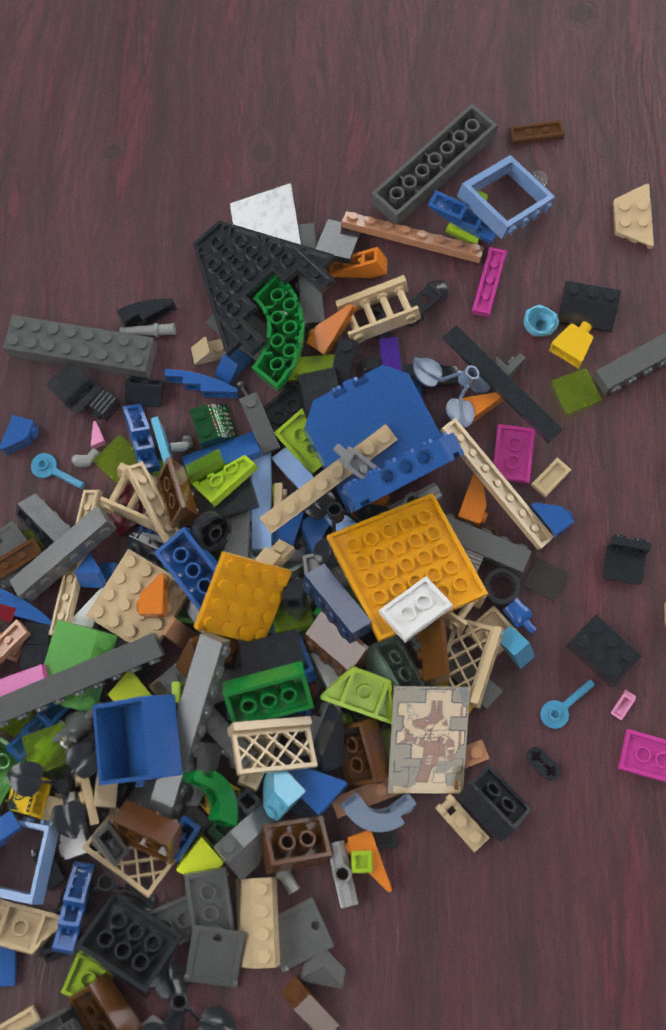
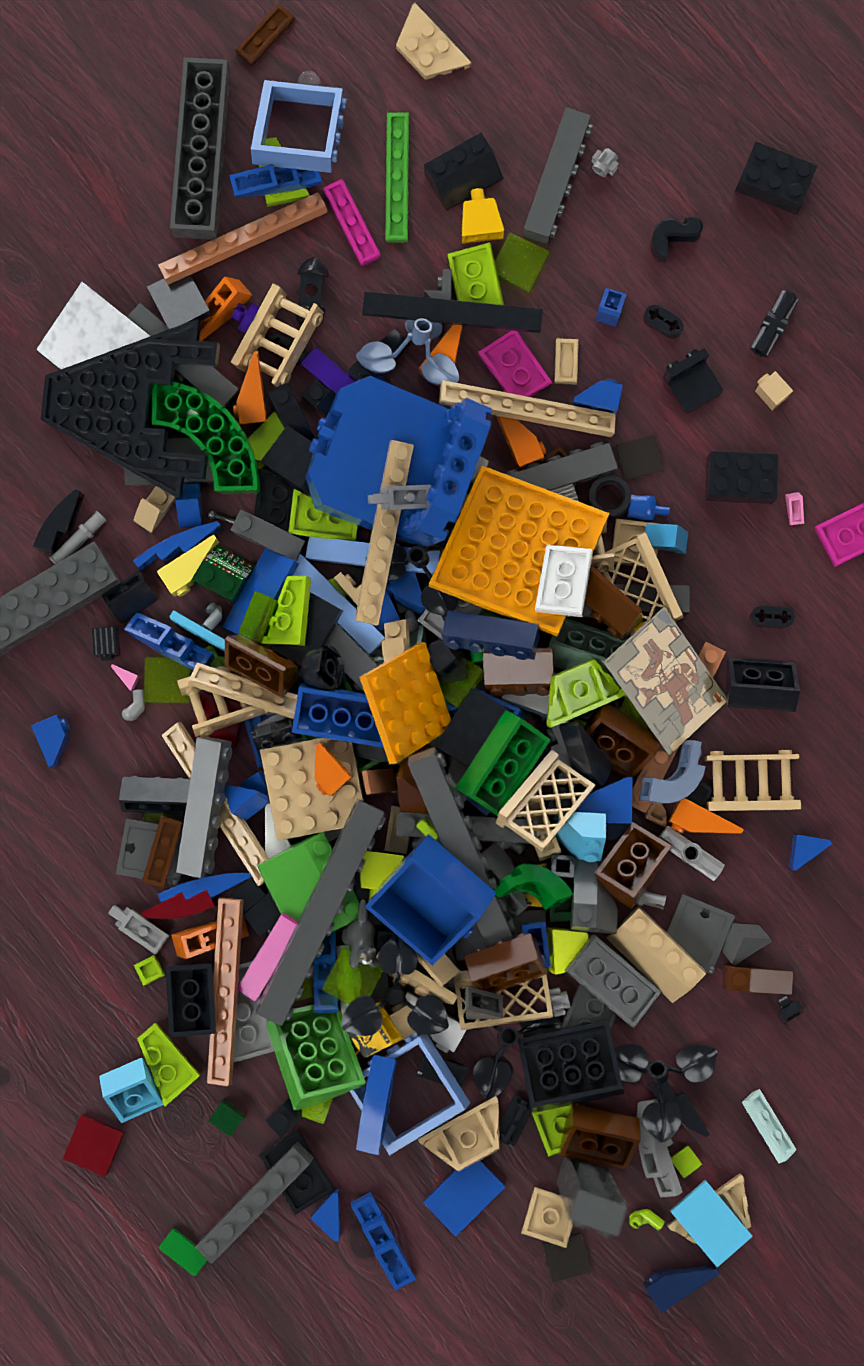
camera: 45 degrees left, 10 degrees up
(45, 466) = (104, 745): dark azure piece -> none
(73, 387) = (64, 651): black bracket -> none
(73, 907) = (497, 1081): blue slope -> none
(163, 891) = (559, 1001): none -> light grey gear
(185, 399) = (181, 571): none -> light yellow slope
(214, 960) = (651, 1014): dark grey container -> none
(344, 826) = (657, 814): none -> medium nougat tile
(361, 862) = (699, 828): lime tile -> none
(369, 281) = (245, 316): none -> dark purple tile
(408, 870) = (741, 800): none -> tan fence
(423, 946) = (804, 849): none -> blue slope
(462, 823) = (750, 724): tan plate -> none
(539, 375) = (475, 275): none -> lime tile
(540, 321) = (434, 223): medium azure hair -> none
(542, 278) = (397, 177): none -> bright green tile
(555, 713) = (746, 565): dark azure piece -> none
(611, 467) = (610, 307): none -> blue slope
(643, 504) = (661, 326): none -> black beam

